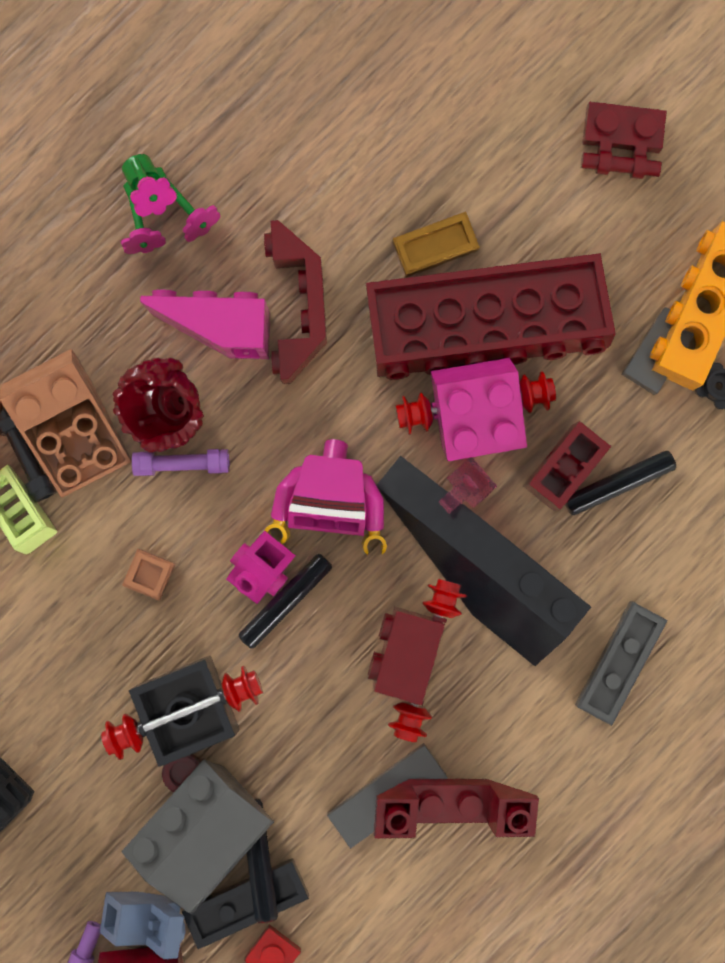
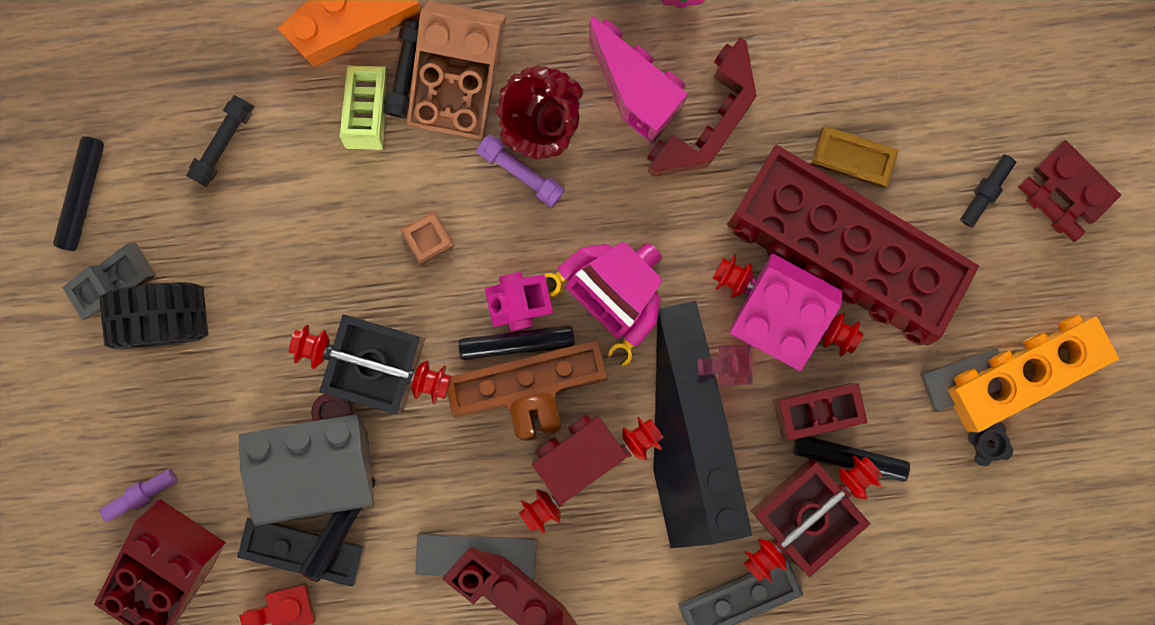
camera: 45 degrees right, 0 degrees up
(143, 920) = (212, 501): sand blue brick -> none
(322, 629) = (528, 387): none -> dark orange plate
(560, 189) = (988, 190): none -> black bar
(625, 556) = (811, 517): none -> dark red brick

